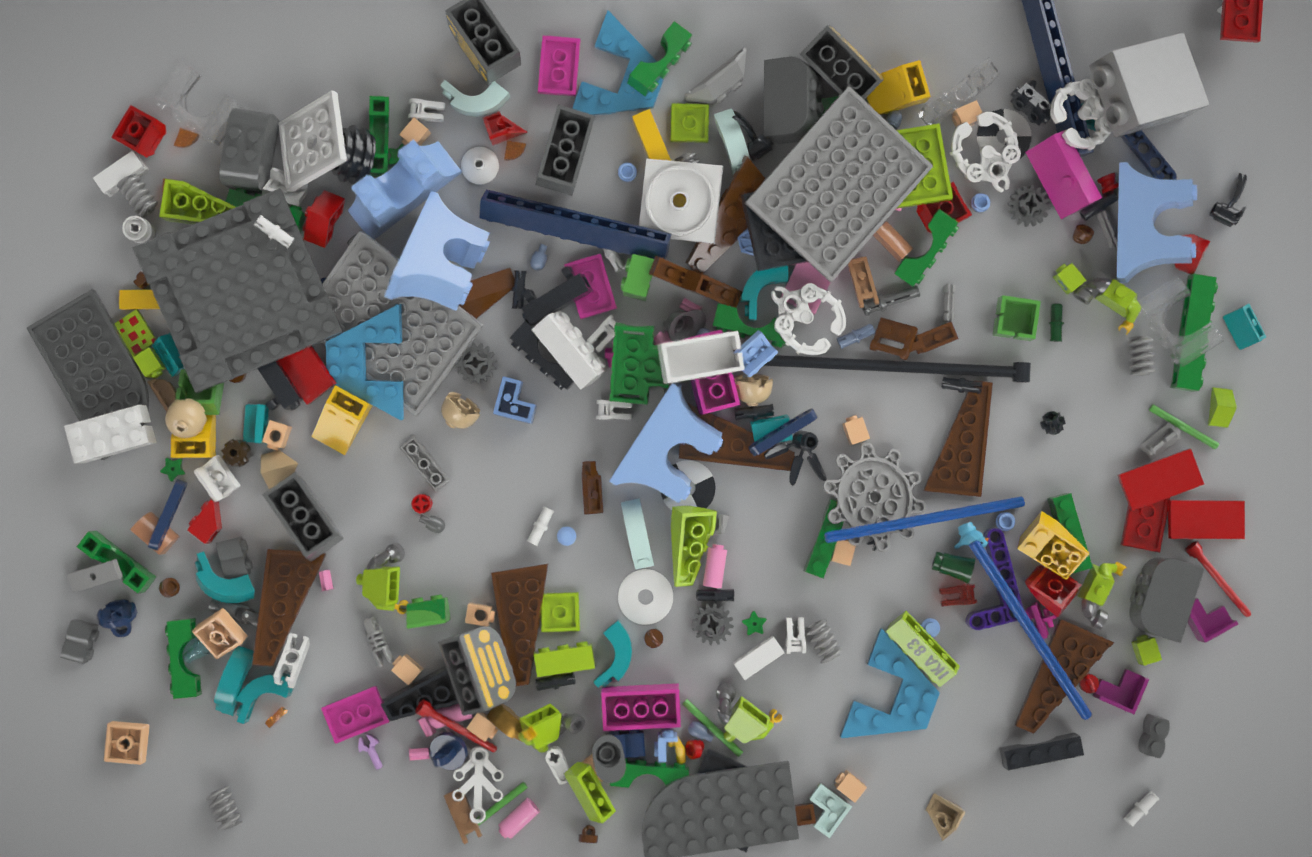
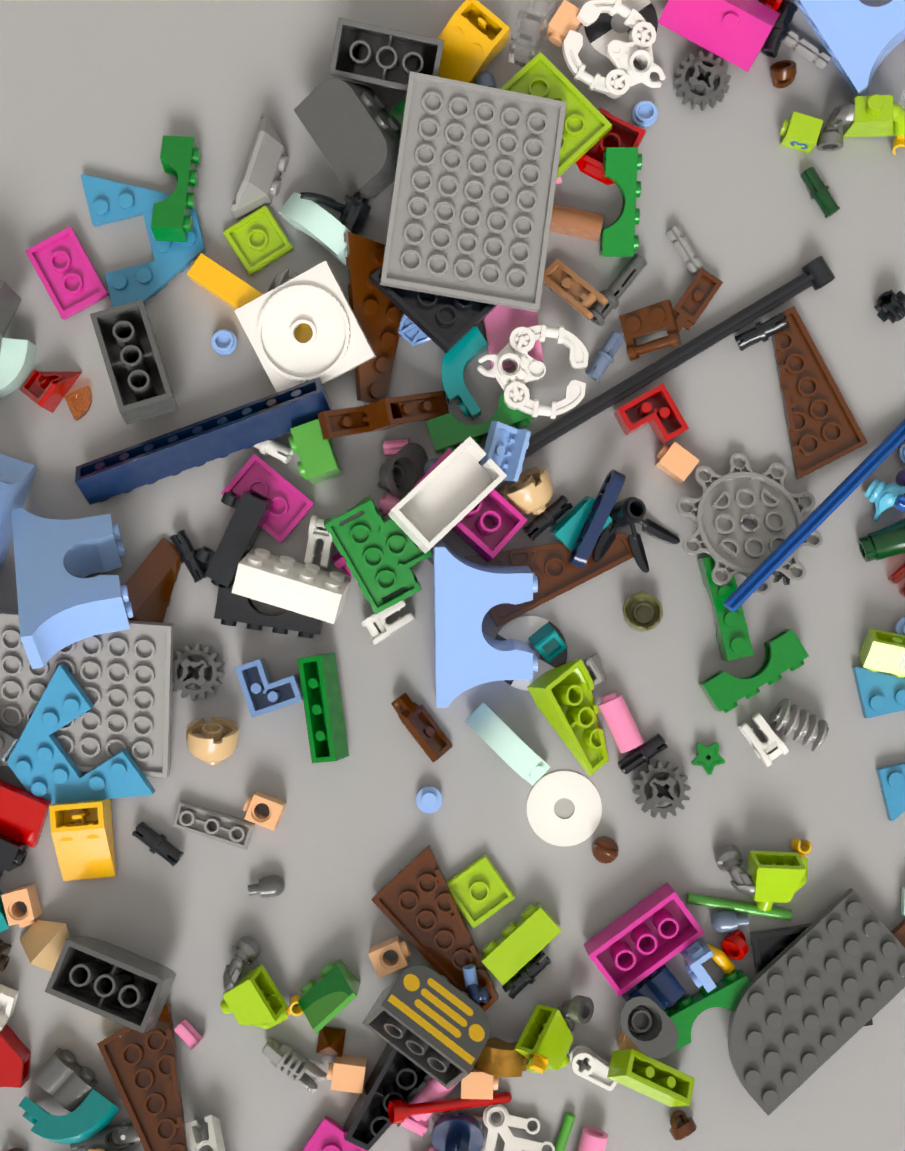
camera: 25 degrees left, 0 degrees up
(383, 452) = (157, 843): none -> black pin
(409, 643) = (331, 1041): none -> reddish brown slope
(418, 503) = (235, 876): red wheel -> none
(470, 477) = (275, 806): none -> light nougat brick
(482, 174) = (63, 450): white dish -> none
(518, 664) = (471, 983): none -> arm
(539, 258) = (189, 505): sand blue cylinder -> none
(539, 436) = (323, 707): none -> green brick
(540, 526) = (391, 808): white pin -> none
(622, 645) = (570, 878): teal arch -> none
(703, 488) = (547, 642): none -> teal slope
(758, 657) = (738, 792): white piece -> none
(773, 507) = (642, 611): none -> olive hair
(842, 590) = (781, 654): none -> green arch
(843, 552) = (757, 610): light nougat brick -> none
(865, 391) = (655, 409): none -> red brick
(1016, 318) = (773, 215): bright green piece -> none

